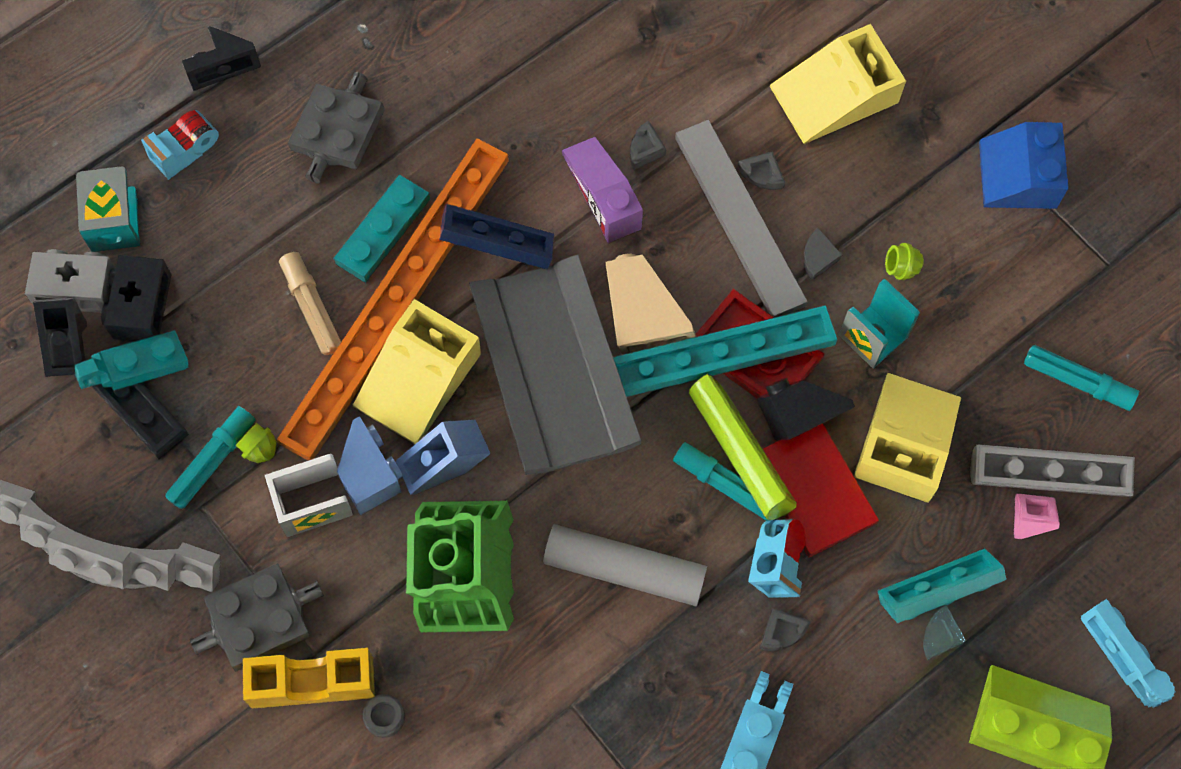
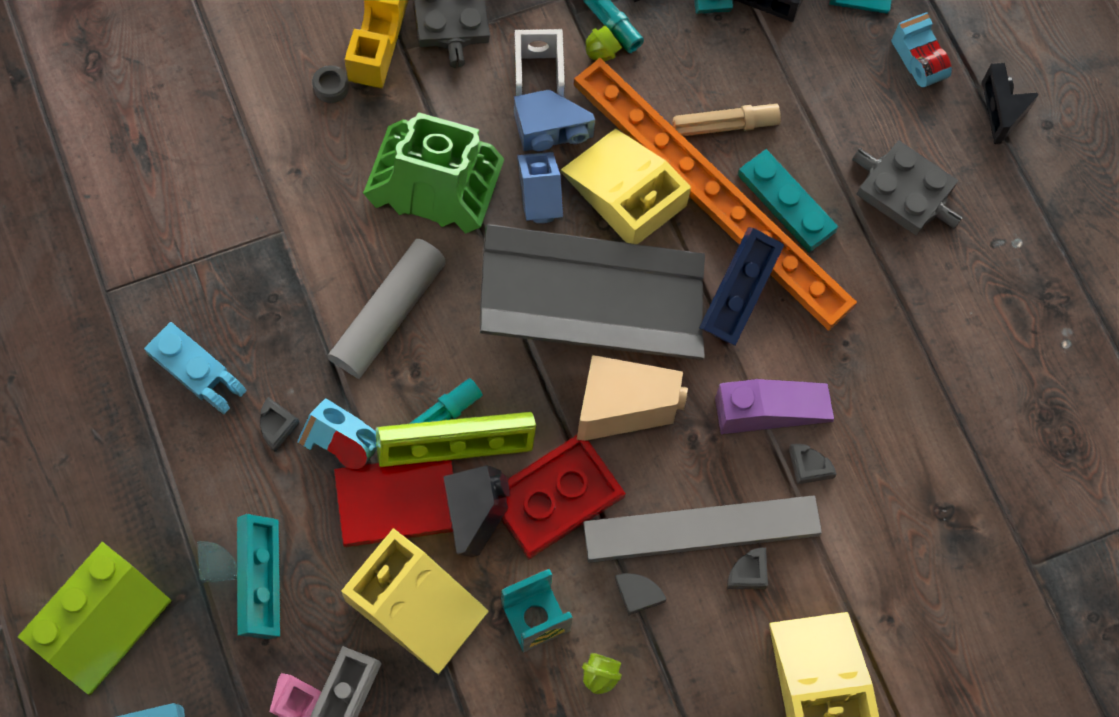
camera: 105 degrees right, 0 degrees up
(725, 351) = (556, 455): teal plate -> none

